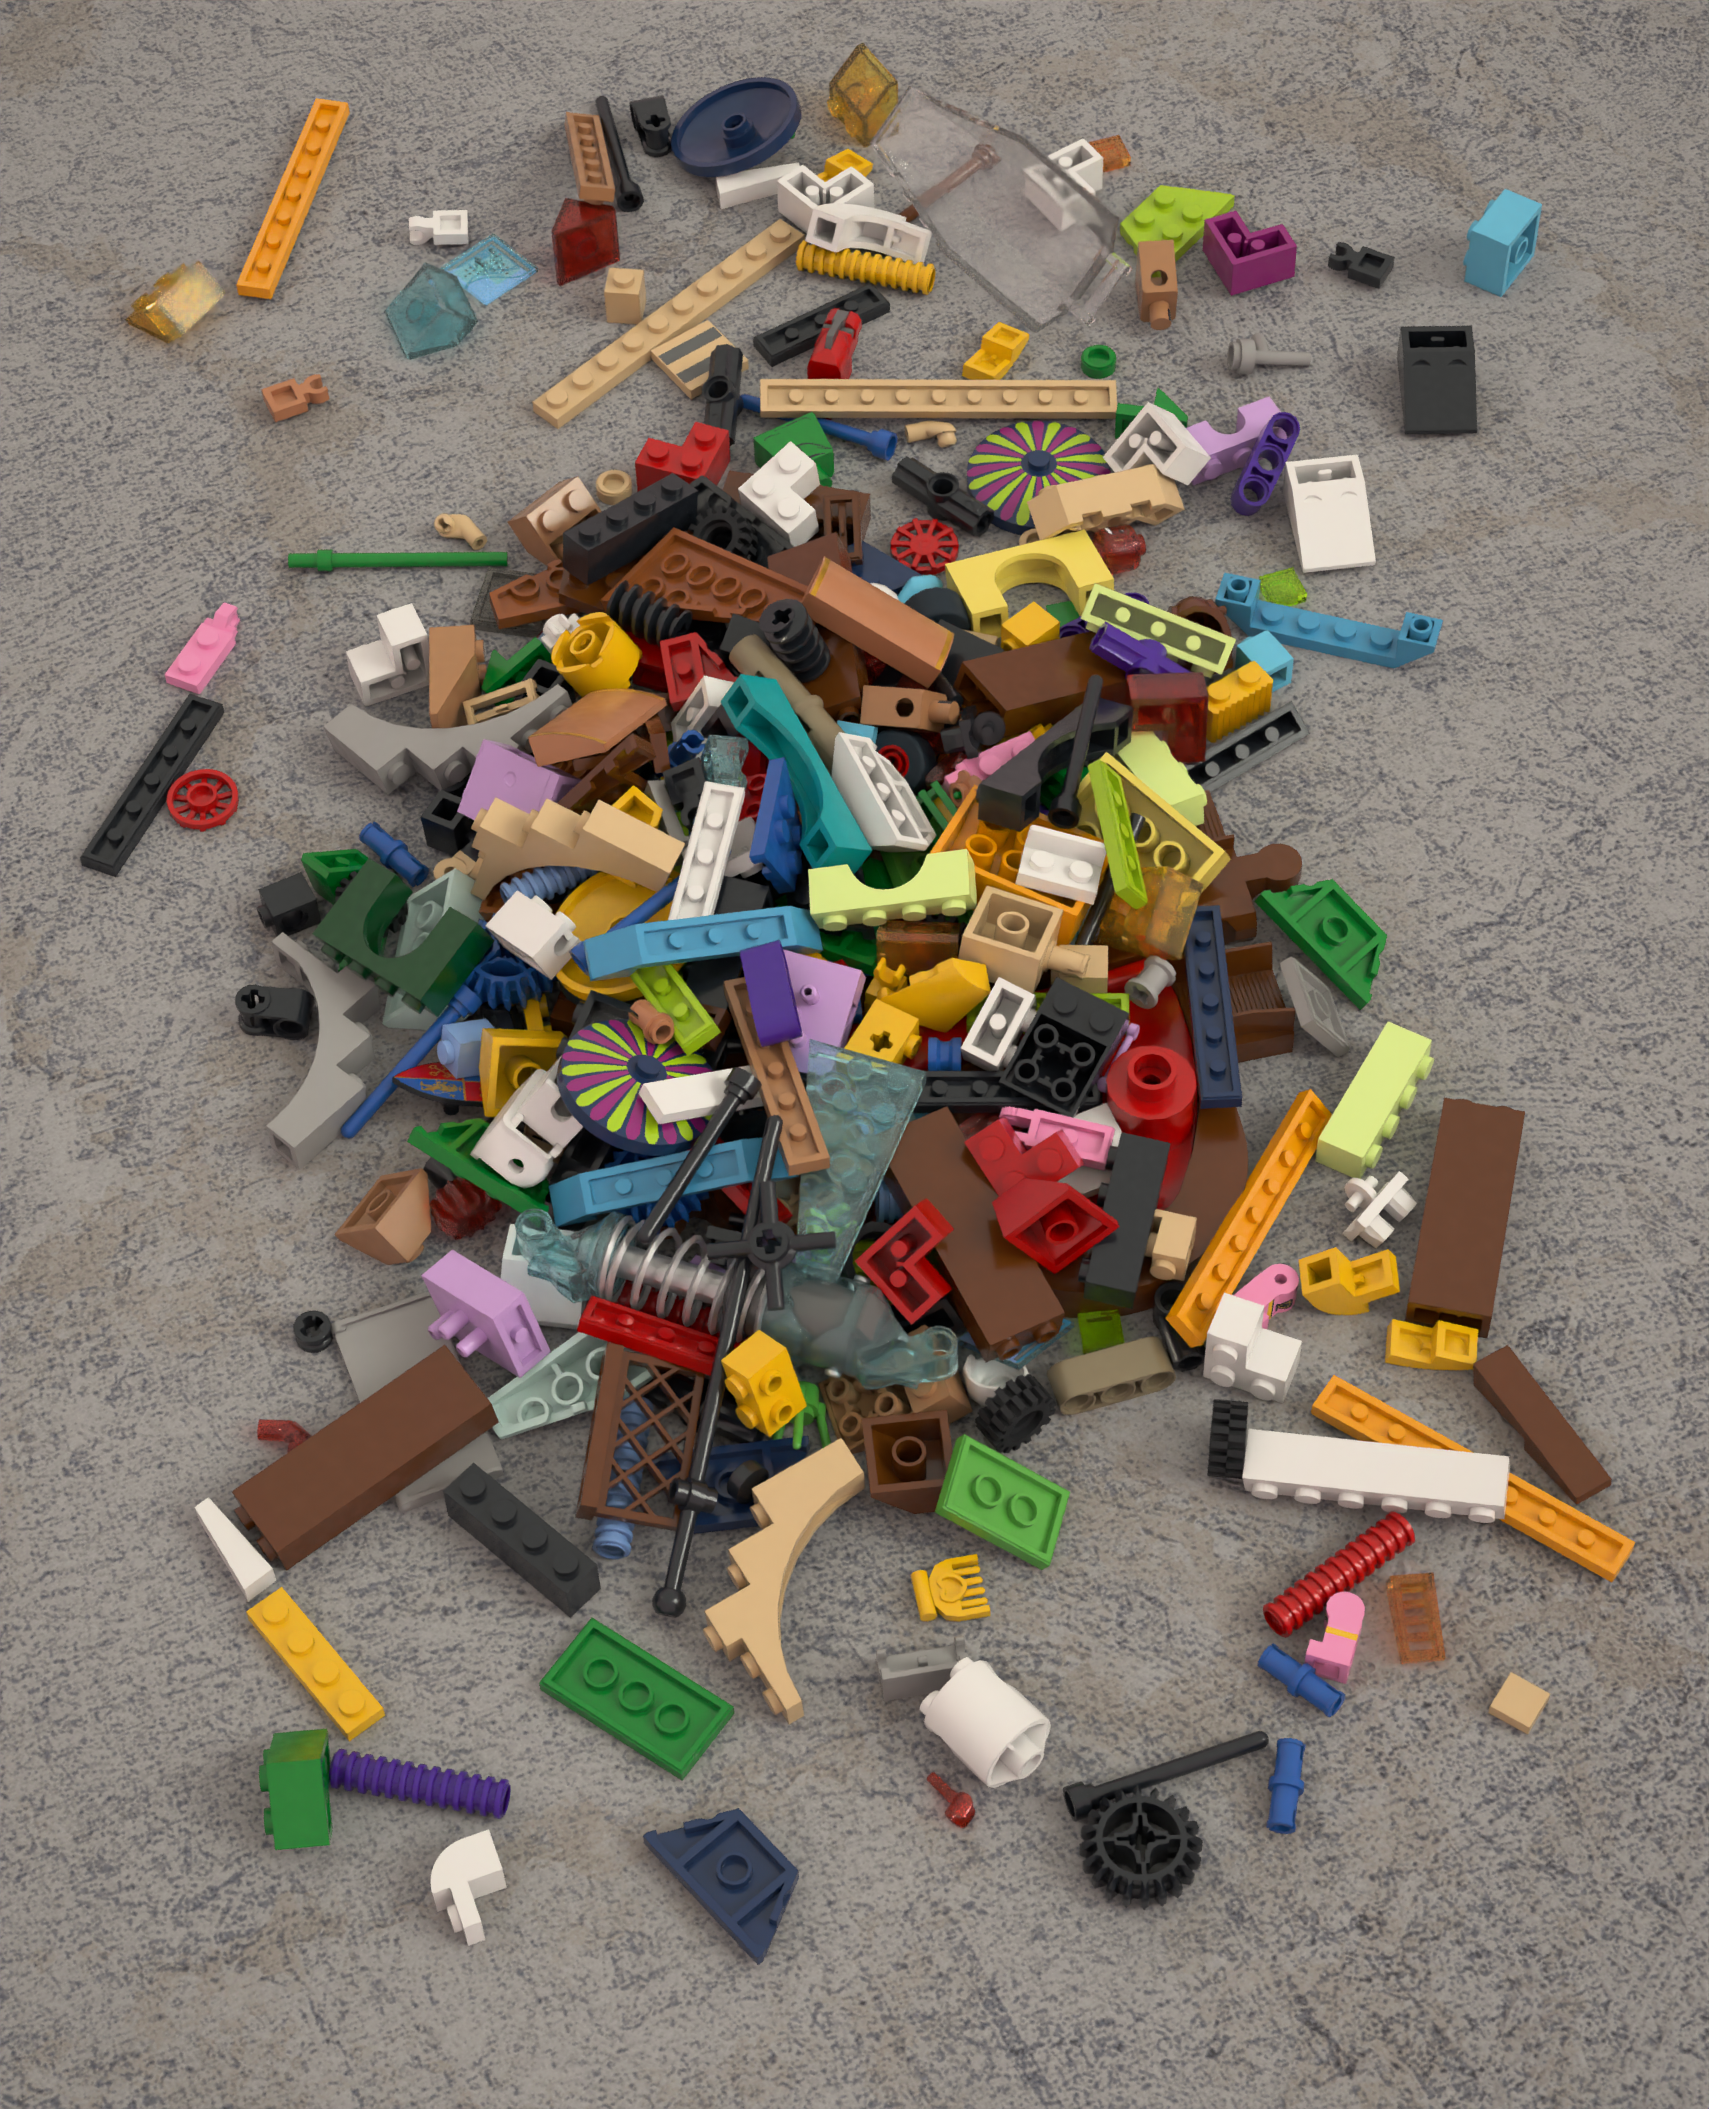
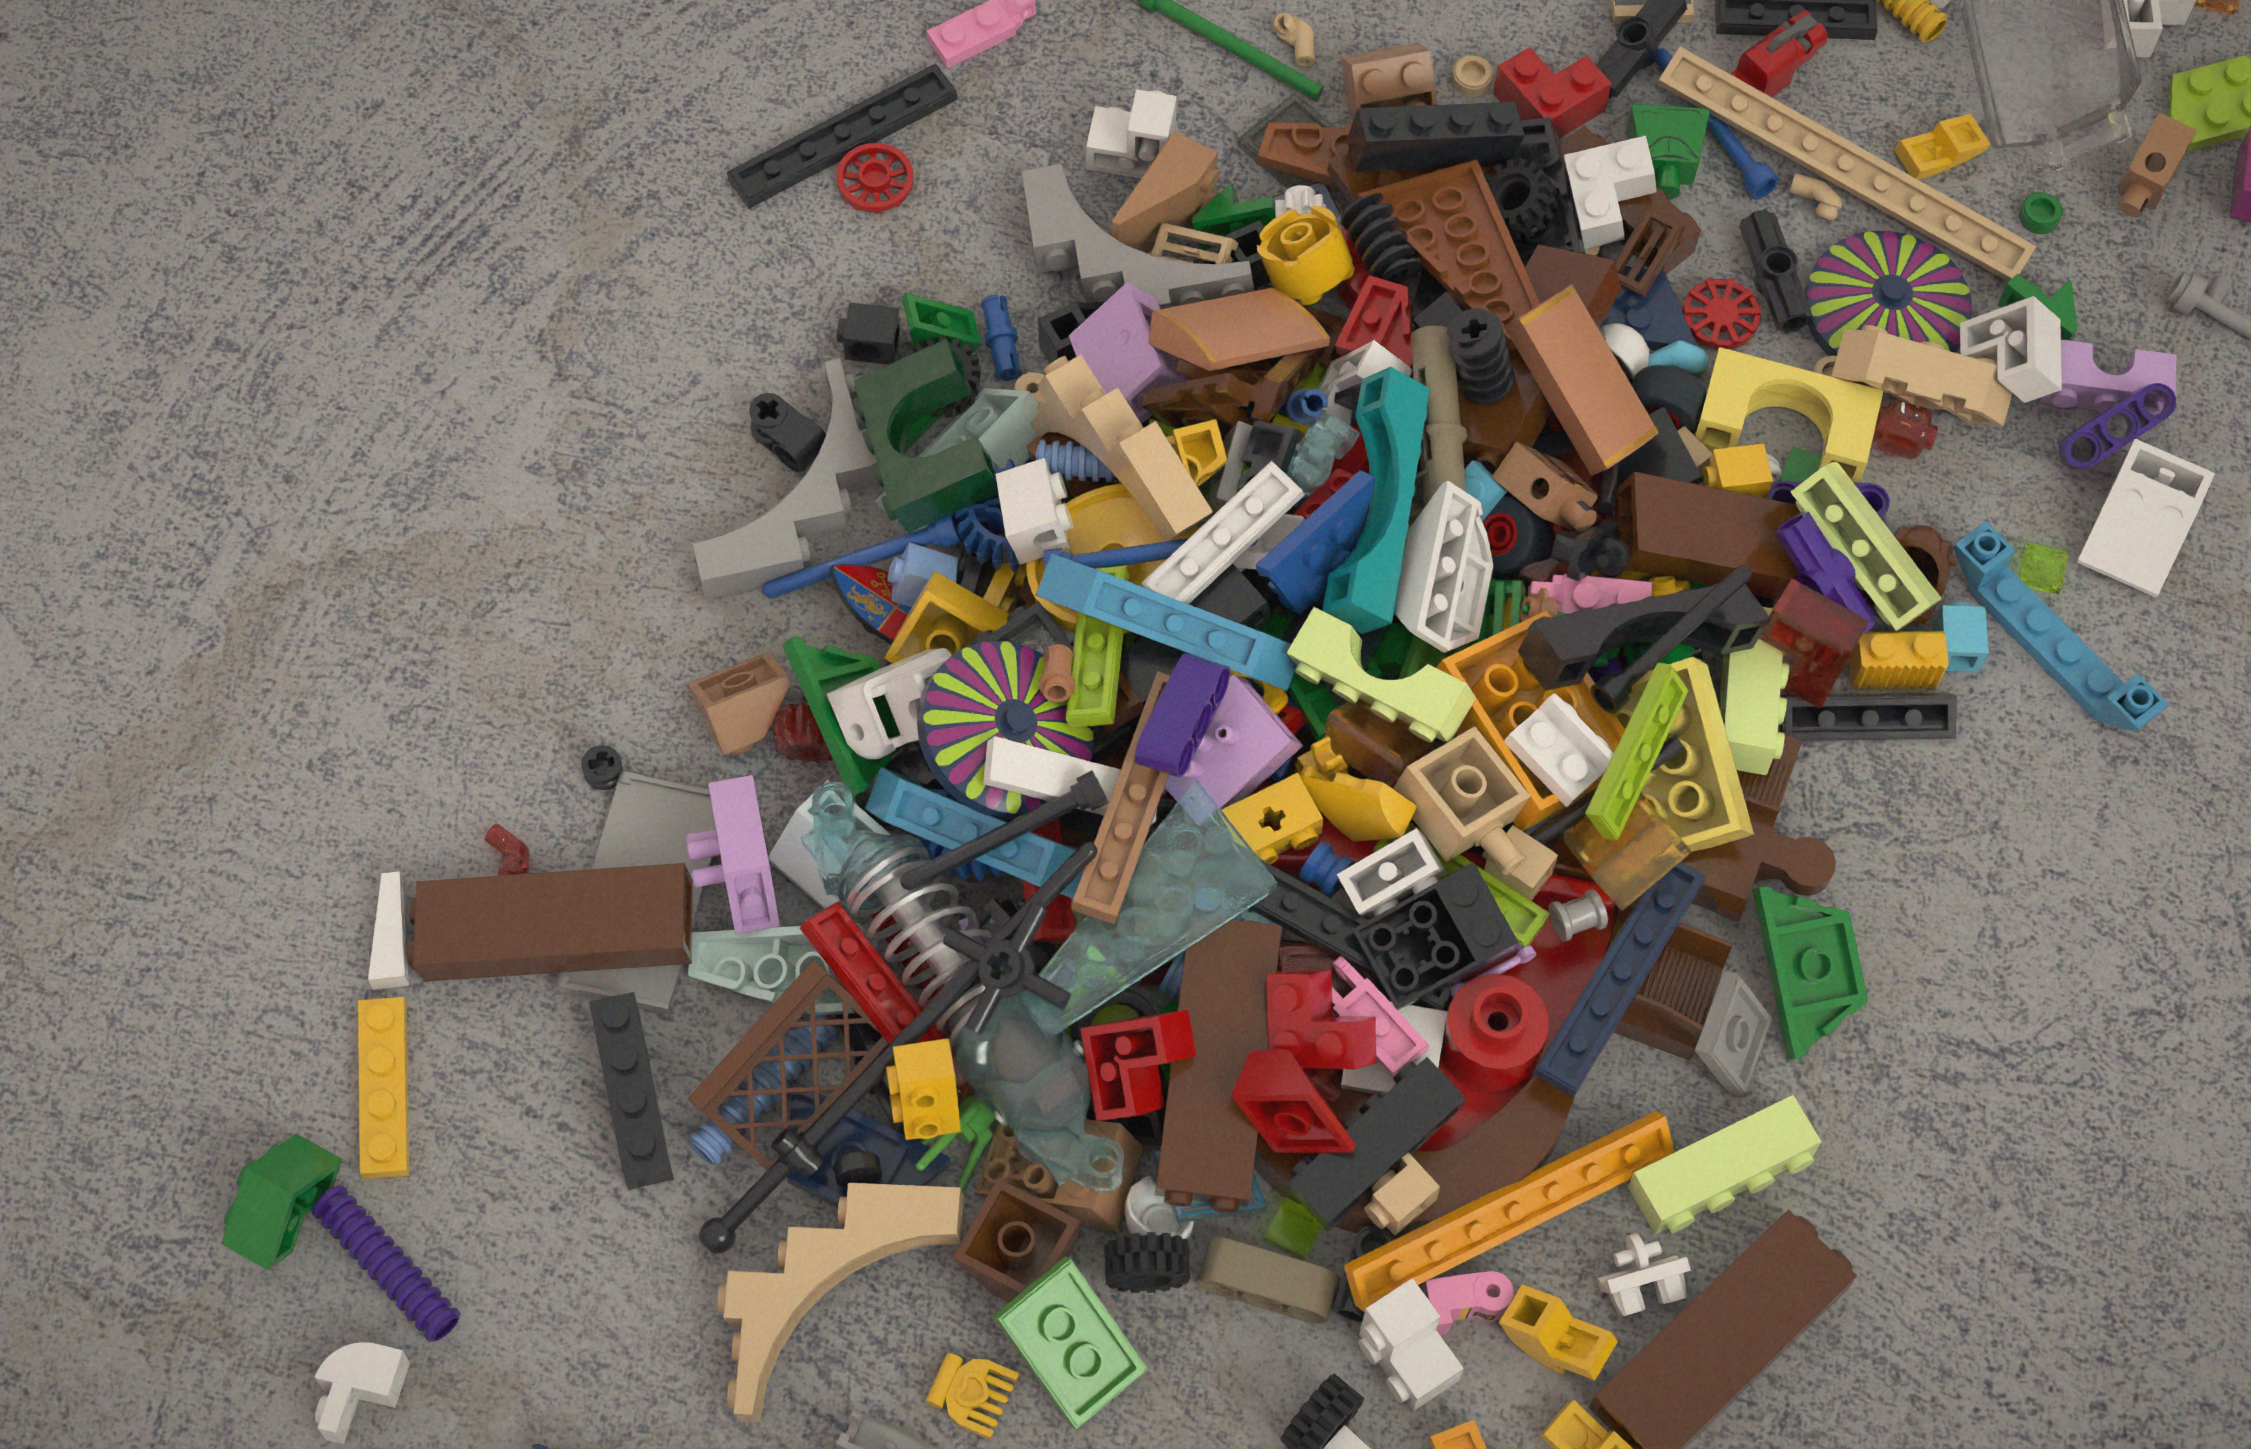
camera: 30 degrees right, 10 degrees up
(637, 1698) = (627, 1307): green tile -> none

